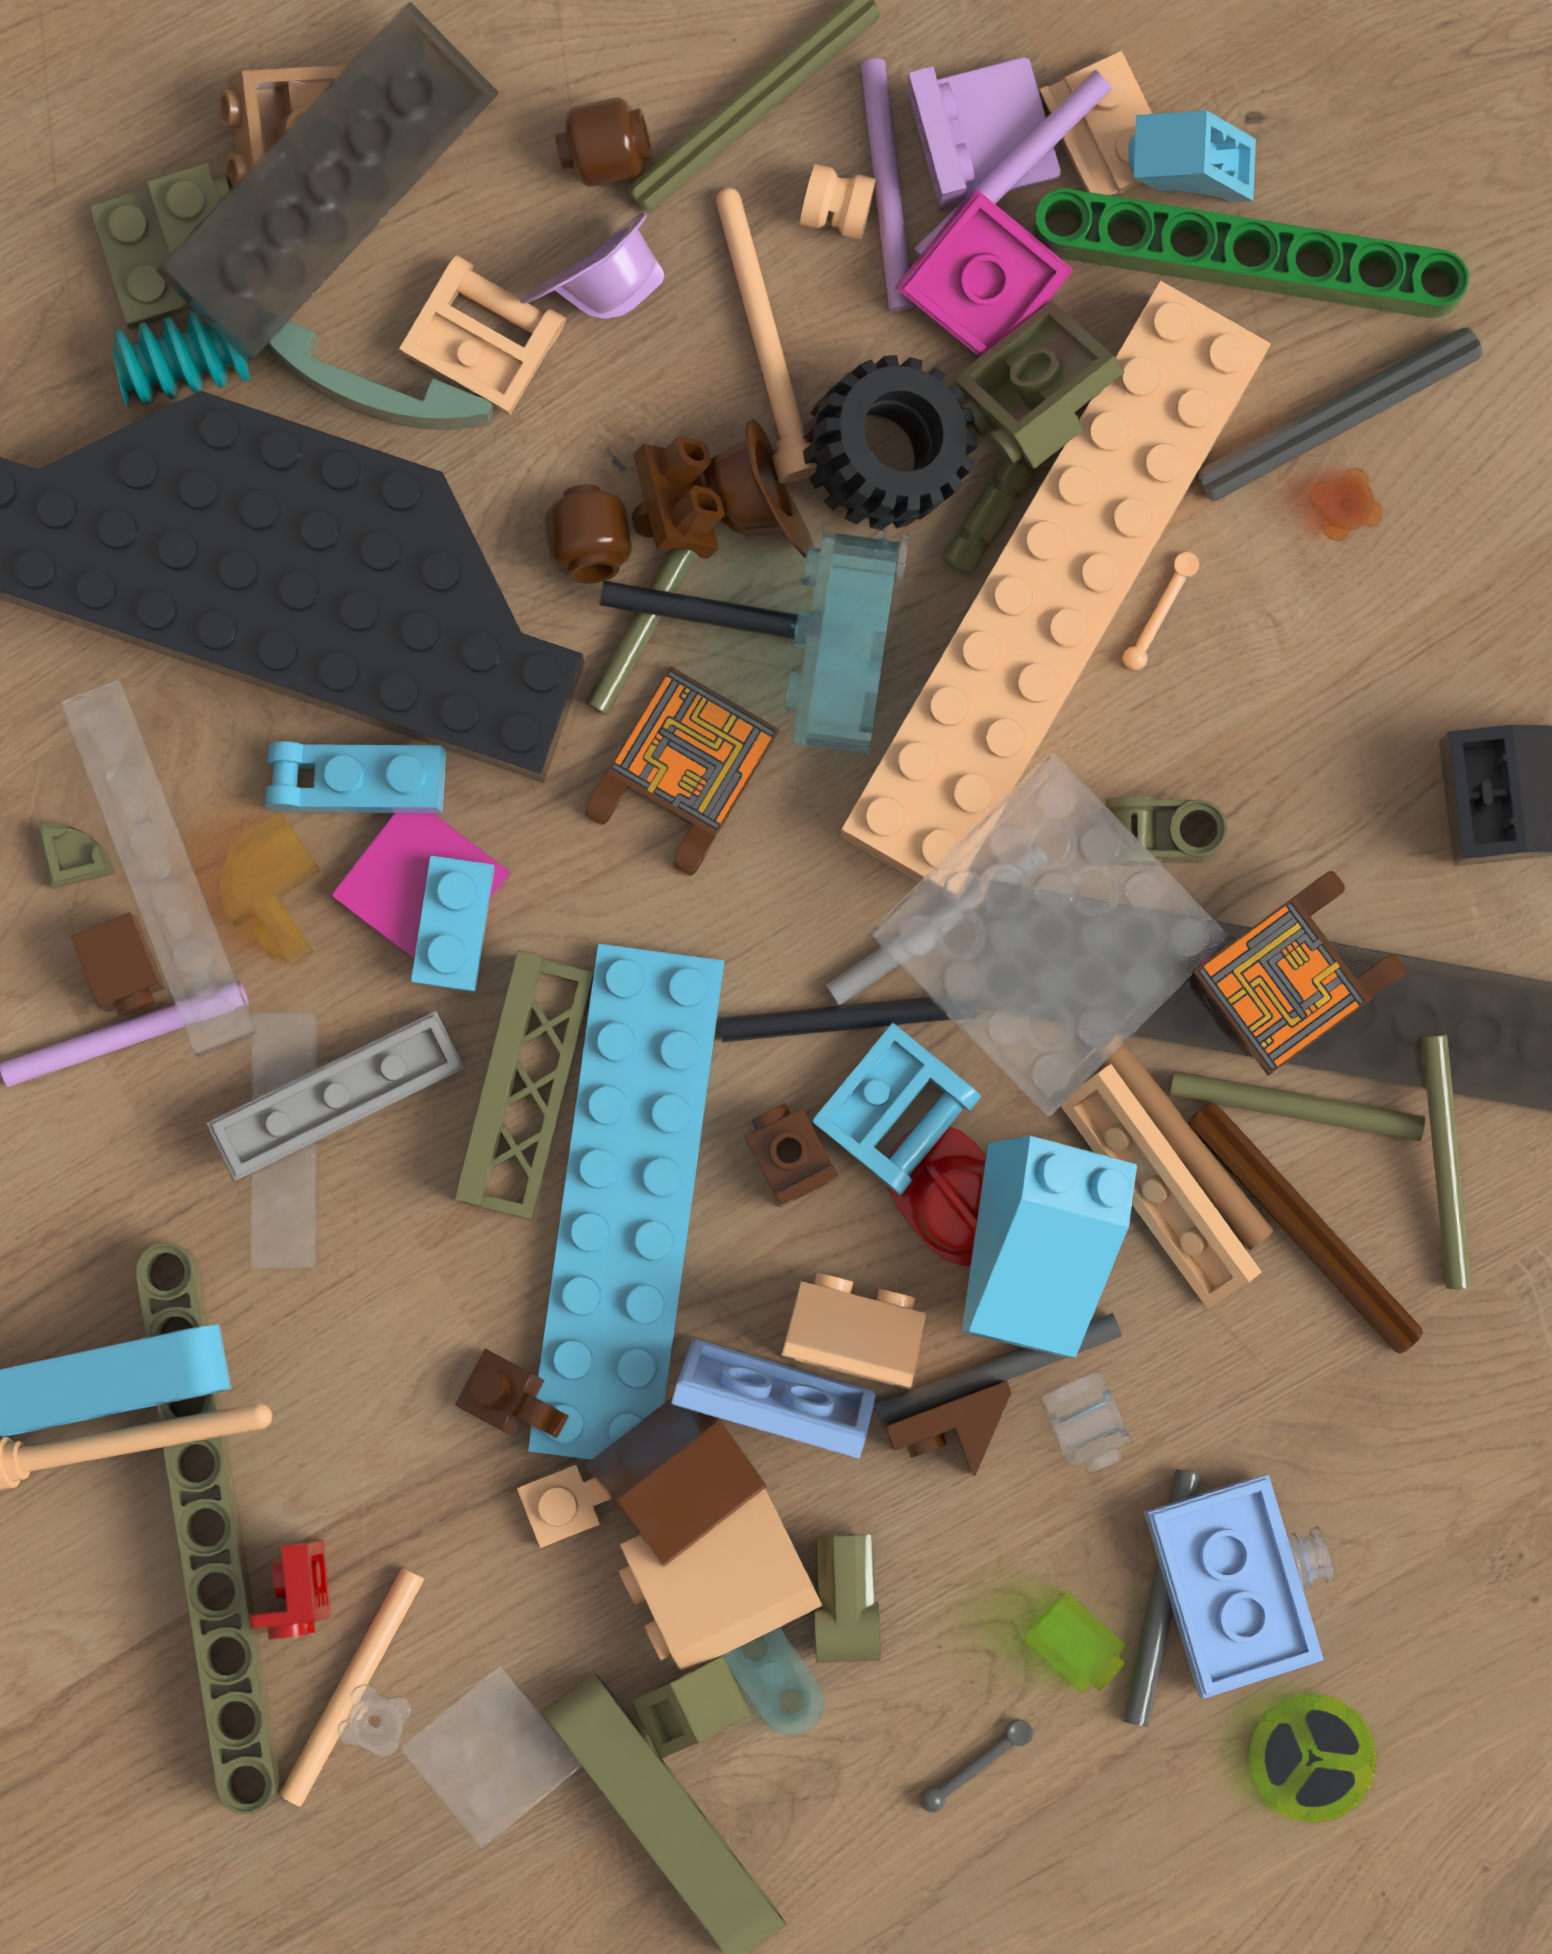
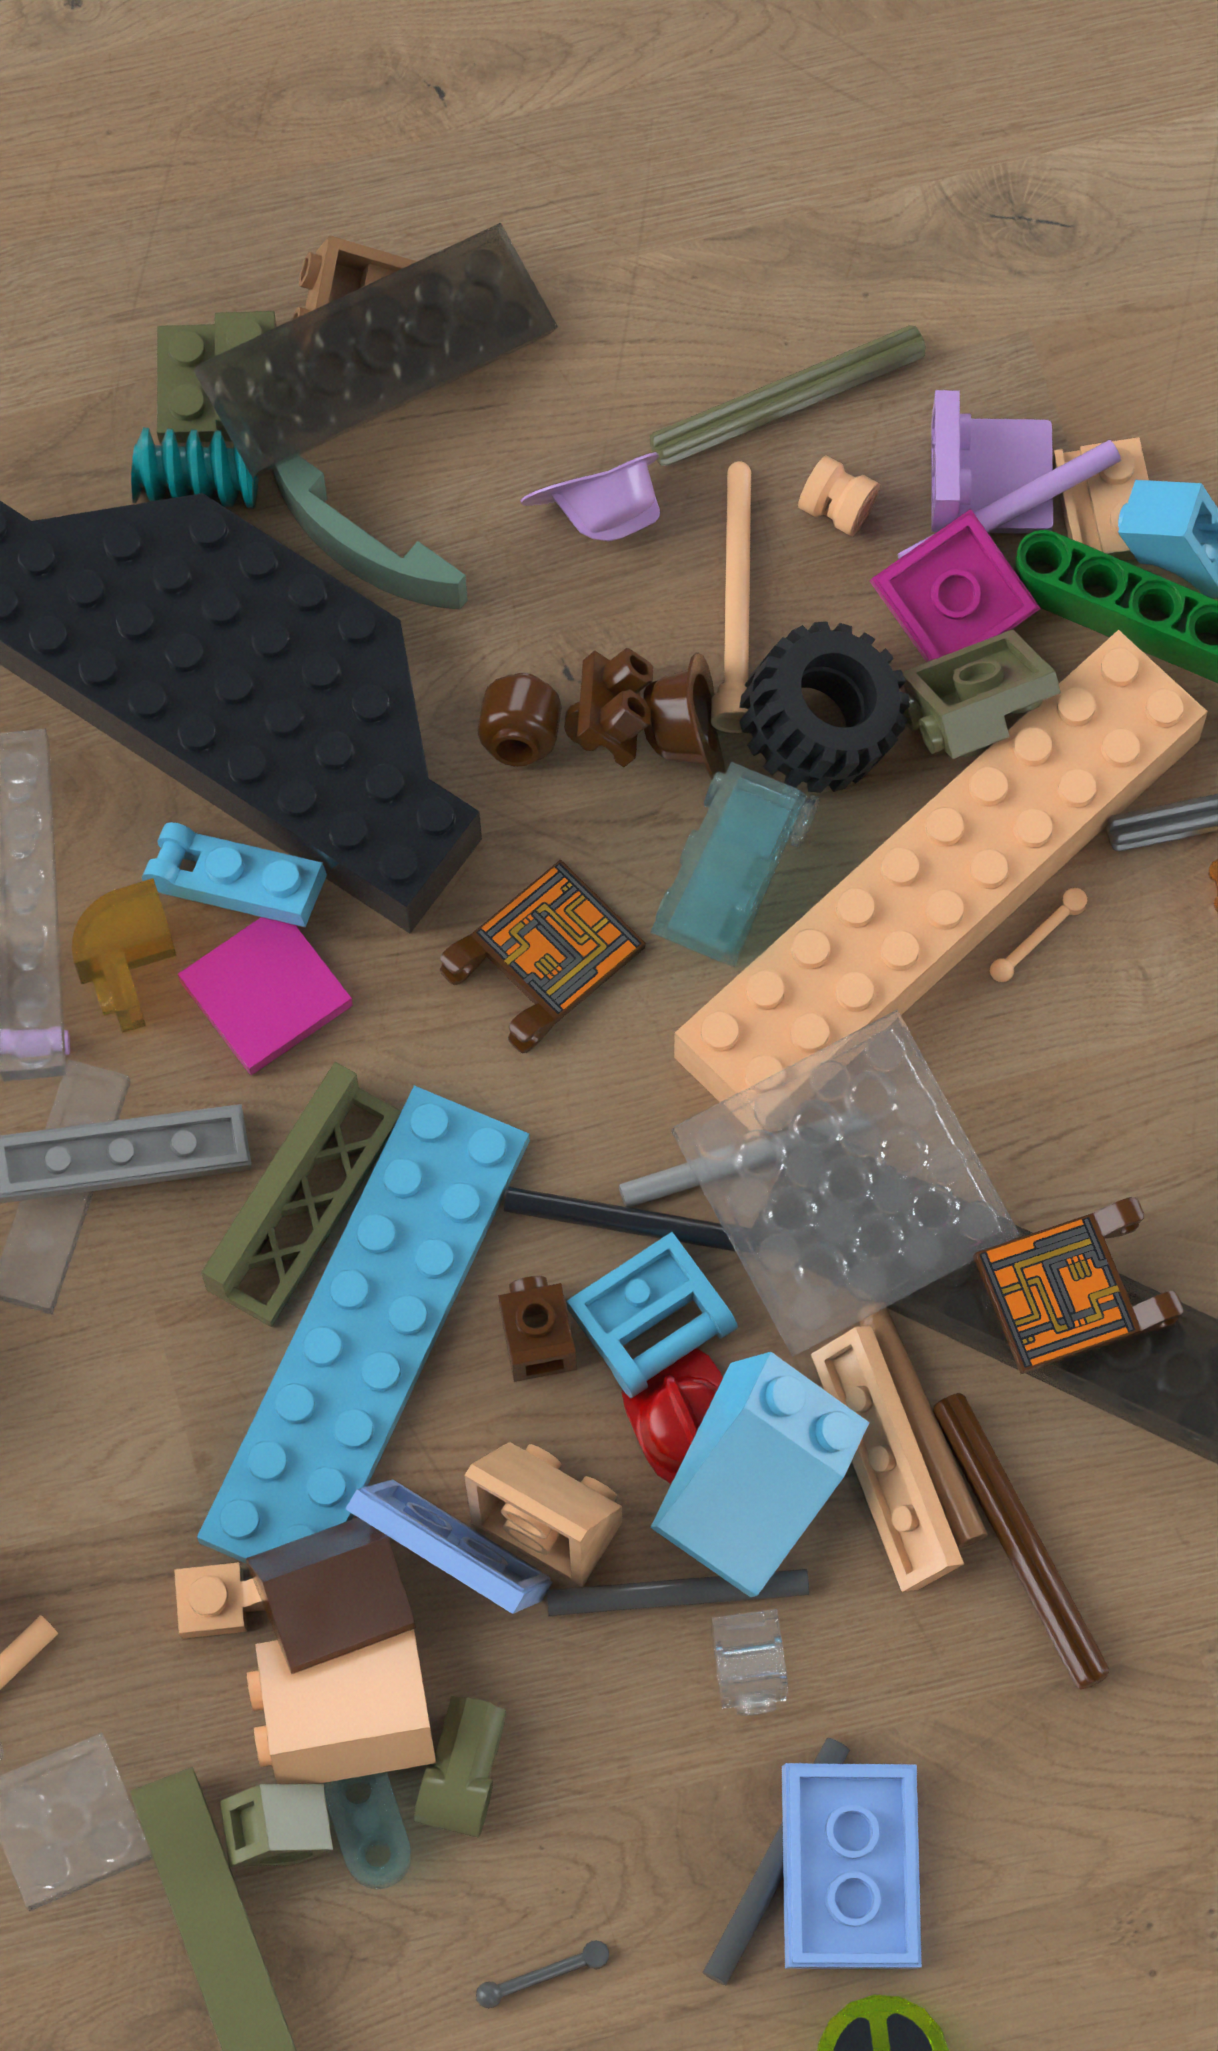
camera: 20 degrees right, 15 degrees down
(453, 924) = (282, 1027): medium azure plate -> none
(473, 353) = (464, 537): light nougat plate -> none
(507, 1396) = (193, 1476): reddish brown plate -> none
(604, 142) = (640, 389): reddish brown head -> none
(637, 634) = (547, 816): olive bar -> none
(698, 609) = (598, 811): black bar -> none
(887, 180) = (890, 493): lavender bar -> none
(971, 1417) = (638, 1622): reddish brown slope -> none
(987, 517) = (897, 806): olive axle -> none
(1076, 1644) = (677, 1876): clear neon green brick -> none
(1160, 823) = (987, 1117): olive piece -> none
(1297, 1105) = (1044, 1423): olive bar -> none
(1311, 1557) = (936, 1860): clear bush -> none
(1446, 1160) = (1176, 1511): olive bar -> none

